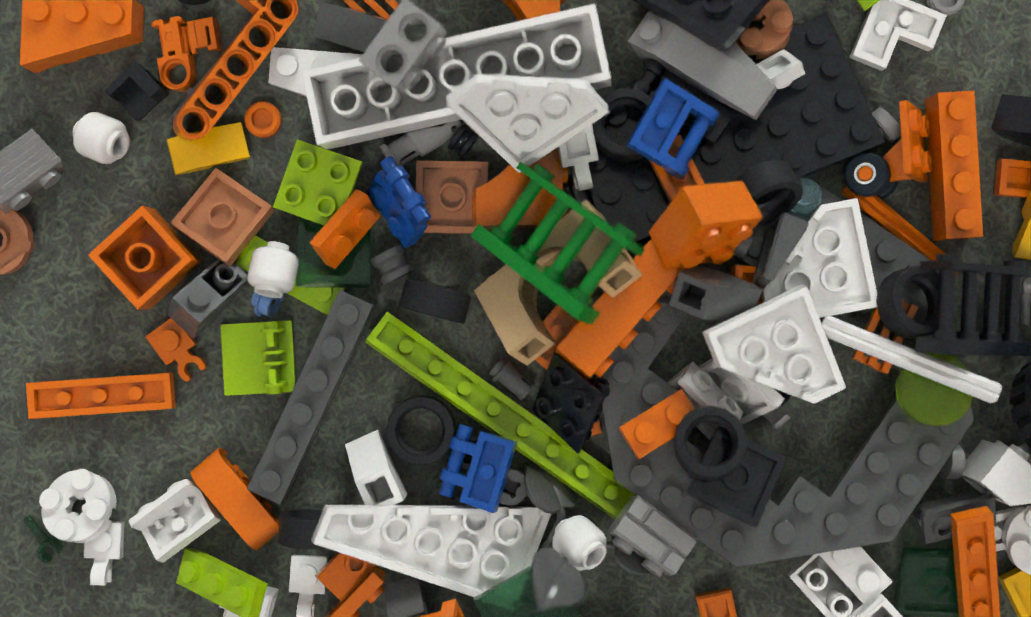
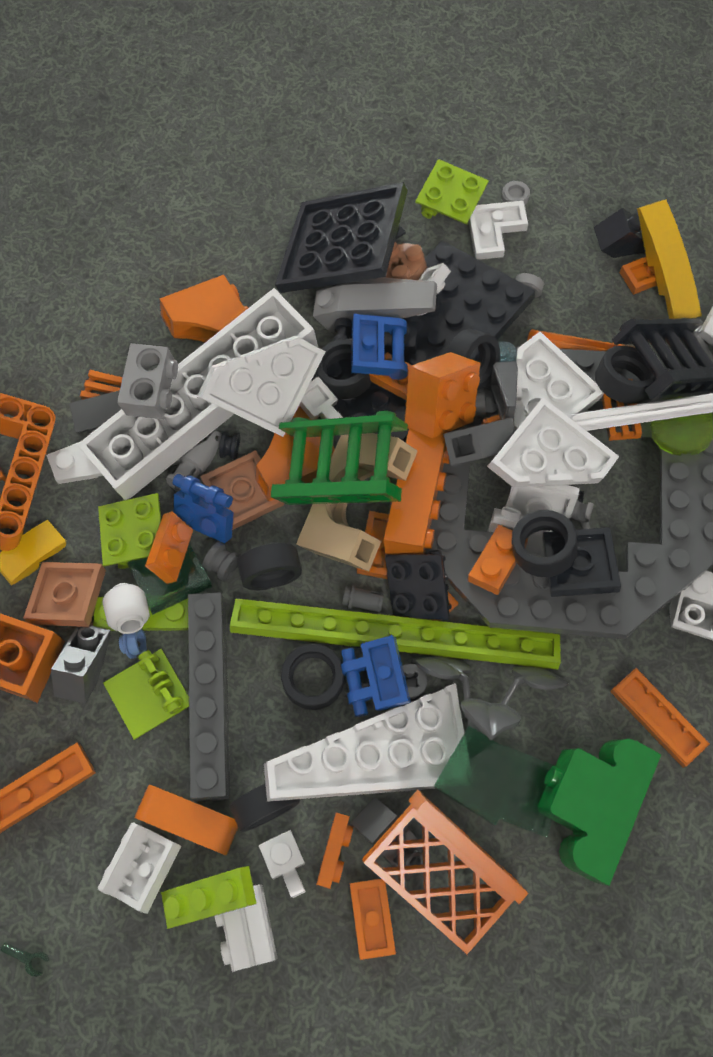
camera: 30 degrees left, 20 degrees down
(59, 500) = (27, 904): white plate -> none
(103, 550) = (84, 930): white plate -> none
(174, 345) = (71, 719): orange plate -> none
(263, 119) = (64, 510): orange tile -> none
(344, 574) = (313, 825): orange plate -> none
(375, 471) = (290, 726): white slope -> none
(580, 542) = (493, 685): white head -> none
(651, 536) = (546, 651): light grey brick -> none
(907, 160) = (557, 296): orange plate -> none
(955, 168) = (591, 283): orange brick -> none

